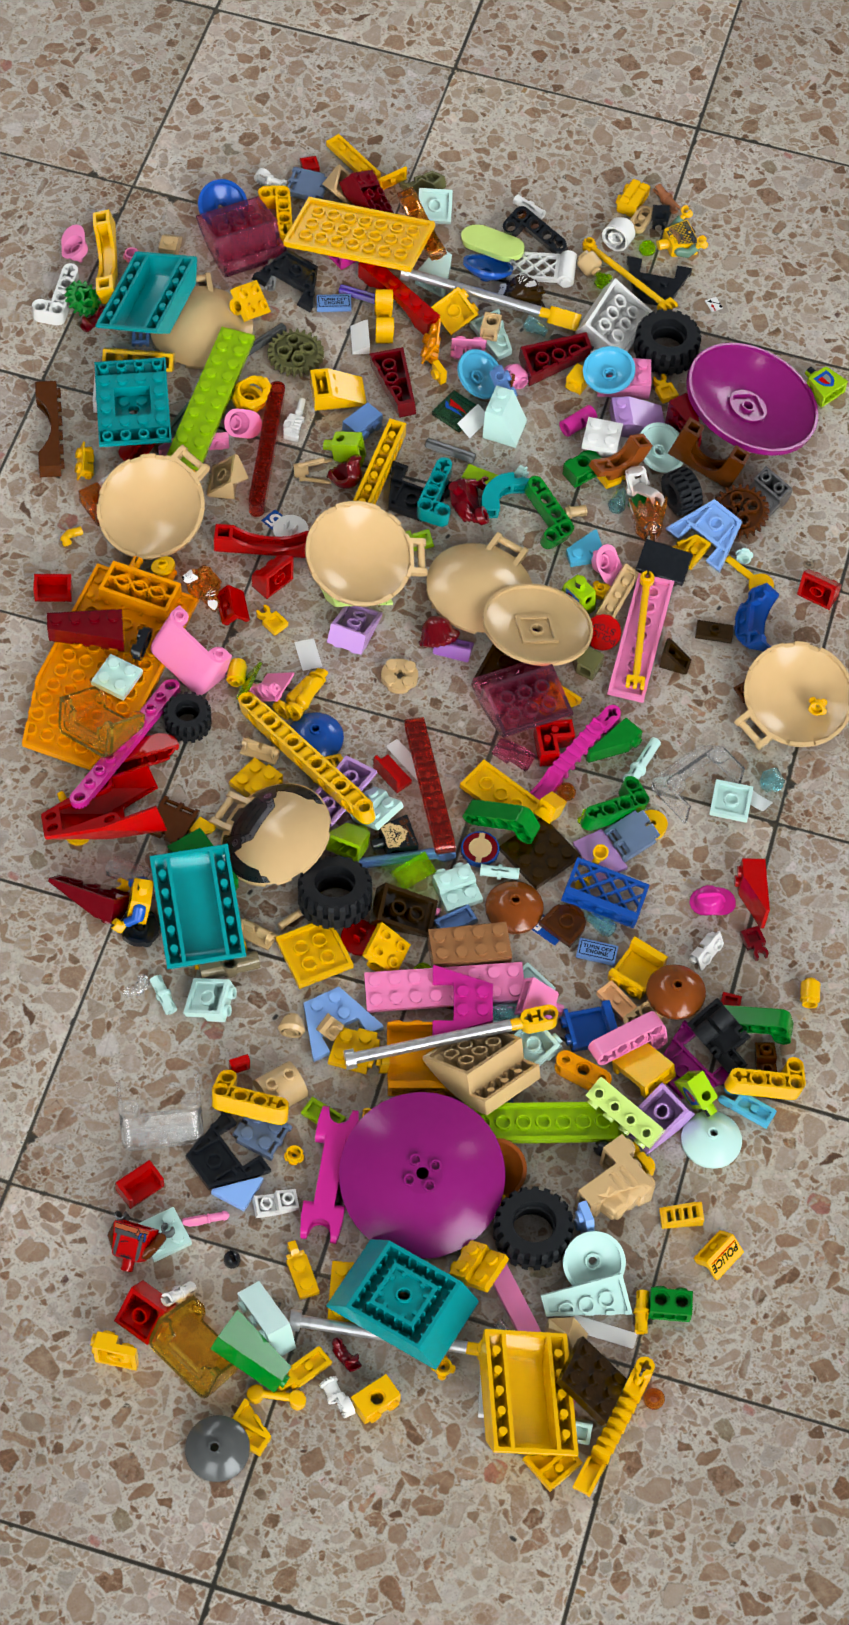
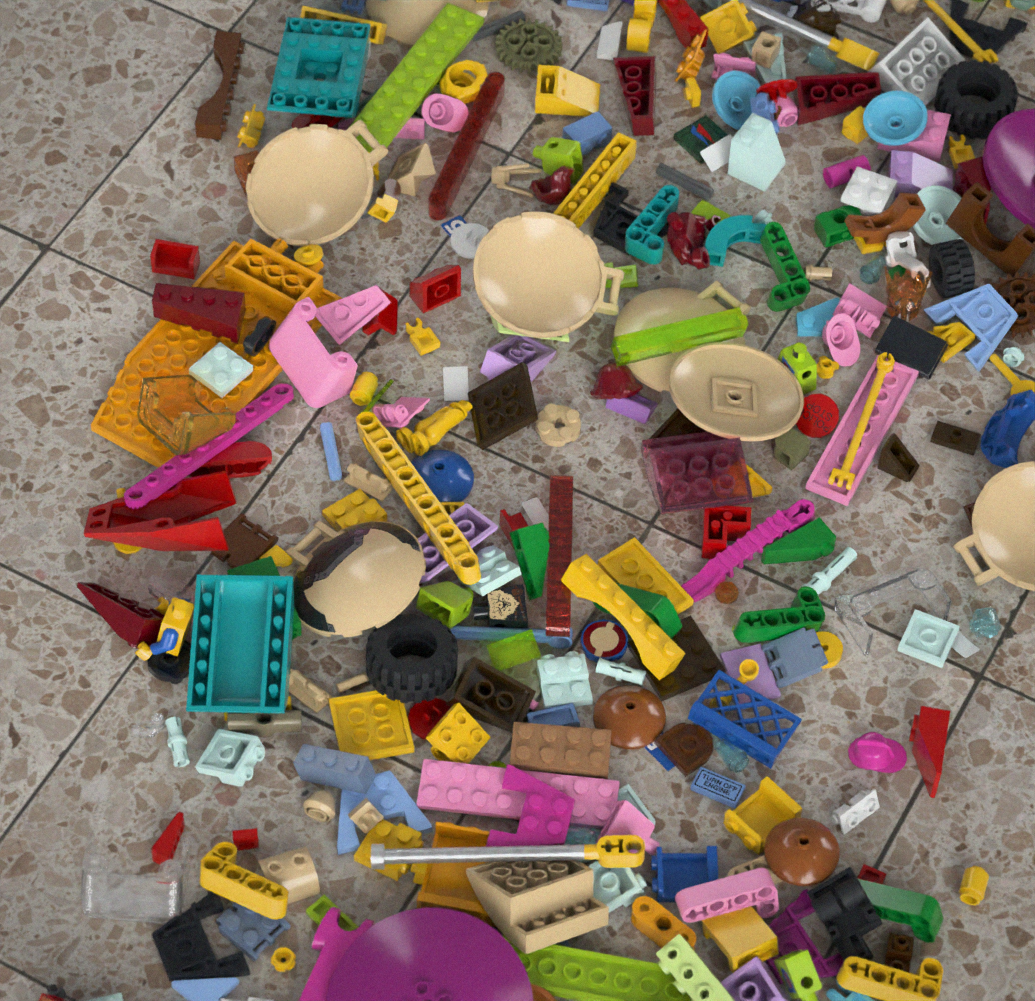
camera: 15 degrees right, 5 degrees down
(70, 533) = (212, 203): yellow arm -> none
(139, 1184) = (87, 958): red panel -> none
(177, 1082) = (167, 843): none -> red slope
(187, 704) = (294, 443): black tyre -> none
(203, 585) = (346, 277): clear orange piece -> none
(211, 610) = (351, 313): none -> bright pink wing
(214, 507) = (386, 200): none -> yellow leg
(223, 730) = (331, 451): none -> light blue axle
(235, 540) = (401, 240): red arch -> none
(292, 424) = (506, 122): white piece -> none
(296, 993) = (334, 768): none -> sand blue brick
(353, 668) = (502, 406): none -> dark brown plate
(409, 790) = (532, 551): none -> green slope
(482, 586) = (678, 336): none -> clear neon green brick
(511, 358) = (778, 88): none -> red piece
(512, 752) = (674, 537): clear pink slope -> none
(525, 848) = (655, 647): none -> yellow arch
(550, 807) = (701, 606): yellow brick -> none
(602, 279) = (914, 19): clear neon green plate -> none
(617, 535) = (861, 308): none -> bright pink hinge
(618, 591) = (847, 372): tan plate -> none
(619, 1001) = (728, 848): light nougat plate -> none
(754, 940) = (918, 809): dark red plate -> none

